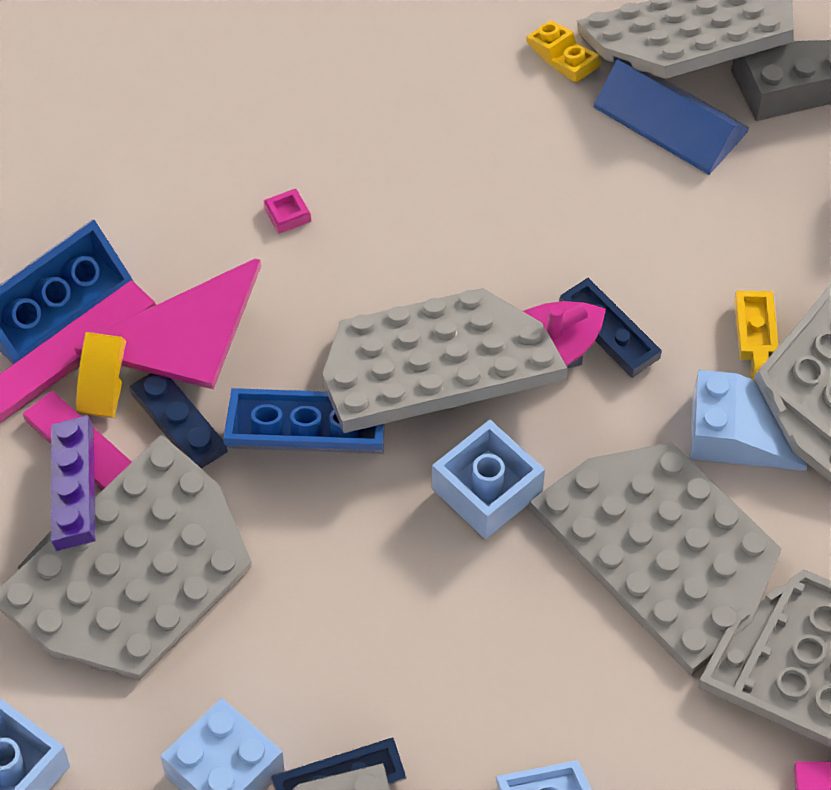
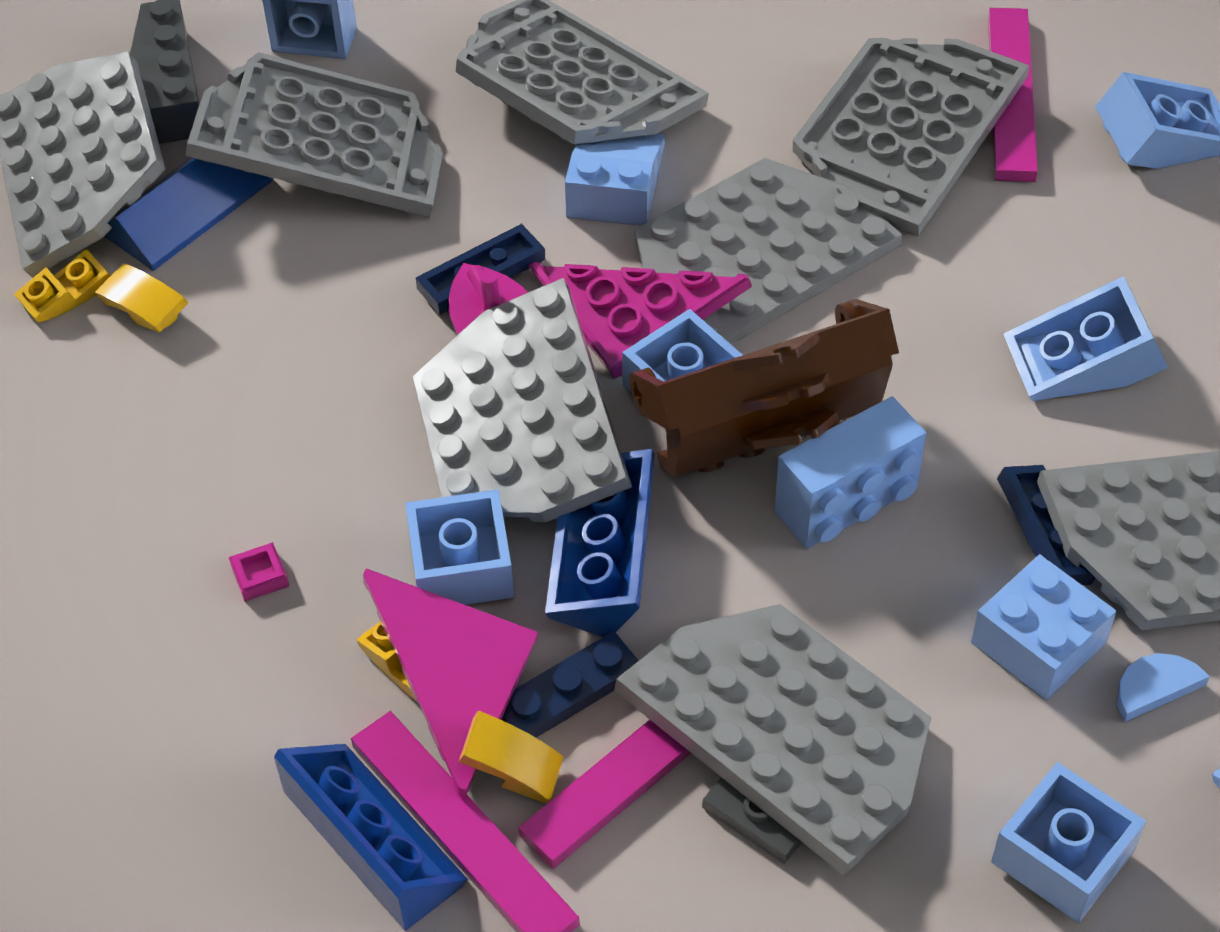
camera: 85 degrees left, 5 degrees down
(72, 483) = (684, 773): plate -> none
(292, 326) = (461, 547): none -> light blue brick
(374, 605) = (849, 472): none -> light blue brick
(423, 532) = (771, 393): none -> reddish brown piece
(548, 98) = (142, 297): none -> yellow slope
(574, 440) = (632, 303): none -> dark pink tile
(742, 188) = (320, 133): none -> light grey plate
(755, 327) = (503, 151): yellow plate -> none

